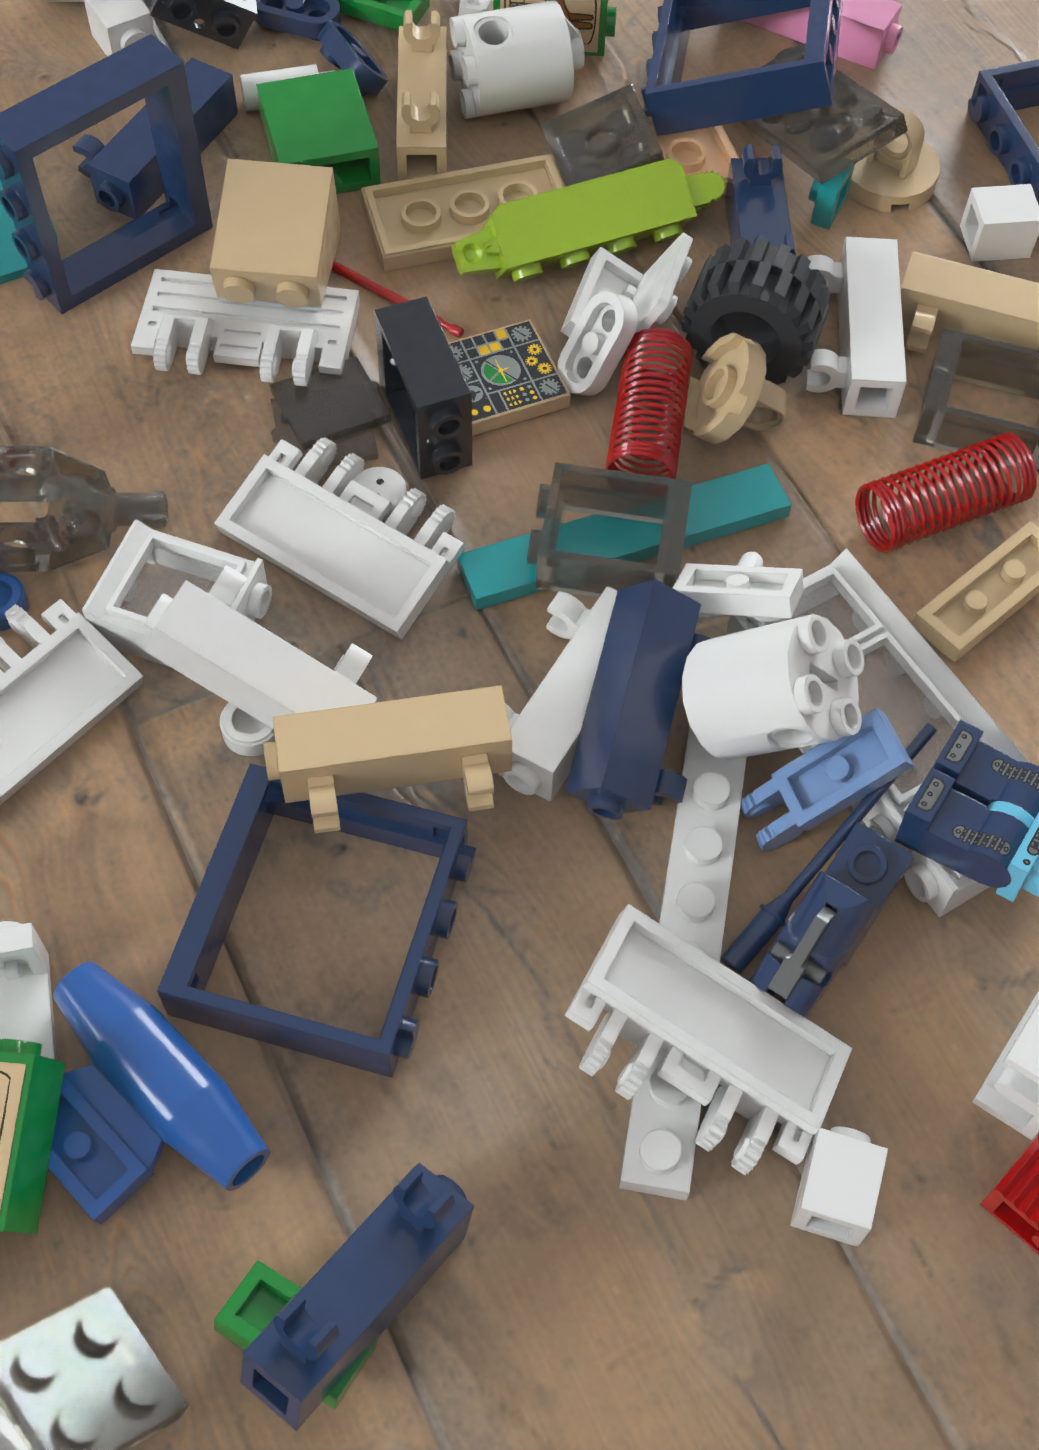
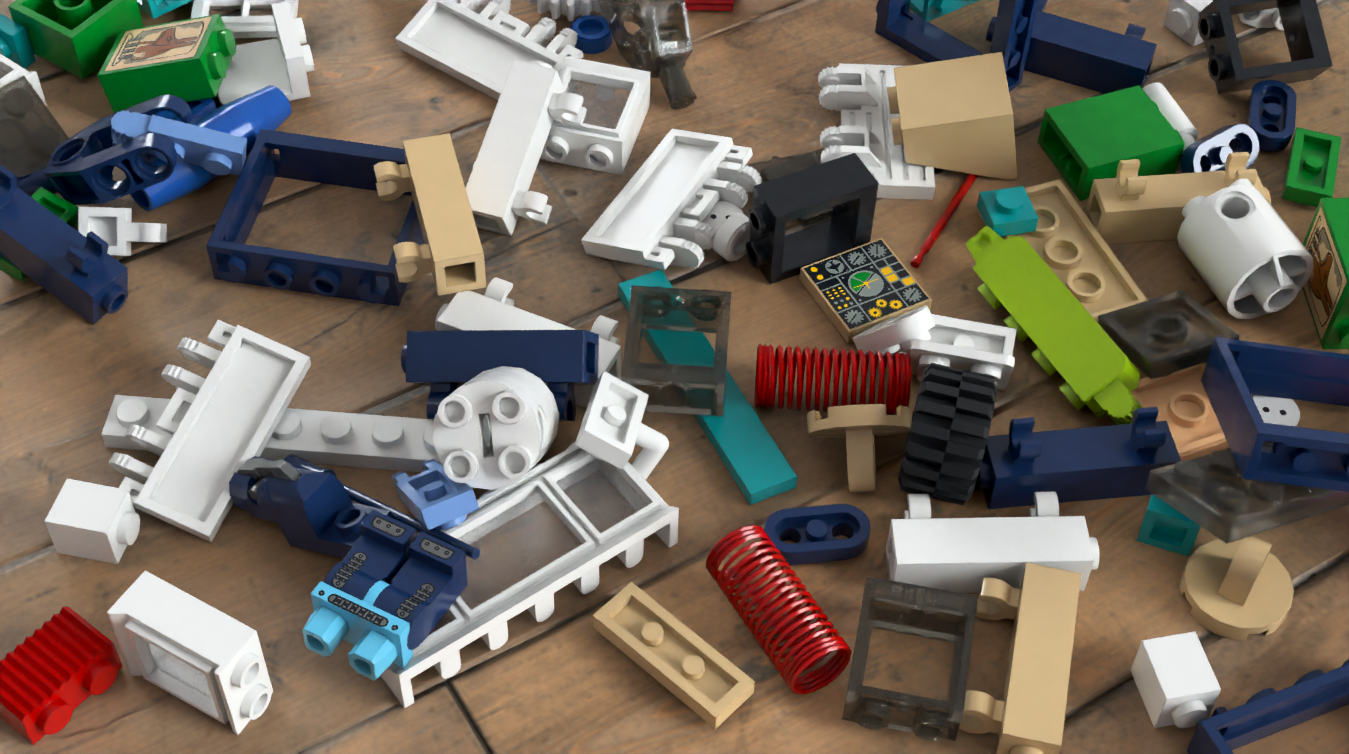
camera: 85 degrees right, 10 degrees down
(155, 1234) = (85, 162): none -> dark blue piece
(207, 1089) = (203, 147): none -> medium blue hinge
(306, 1207) = (117, 228): none -> white plate
(416, 232) = (1007, 211): none -> teal plate
(419, 473) = (732, 237): none -> white tile
(841, 462) = (815, 533): none -> dark blue plate

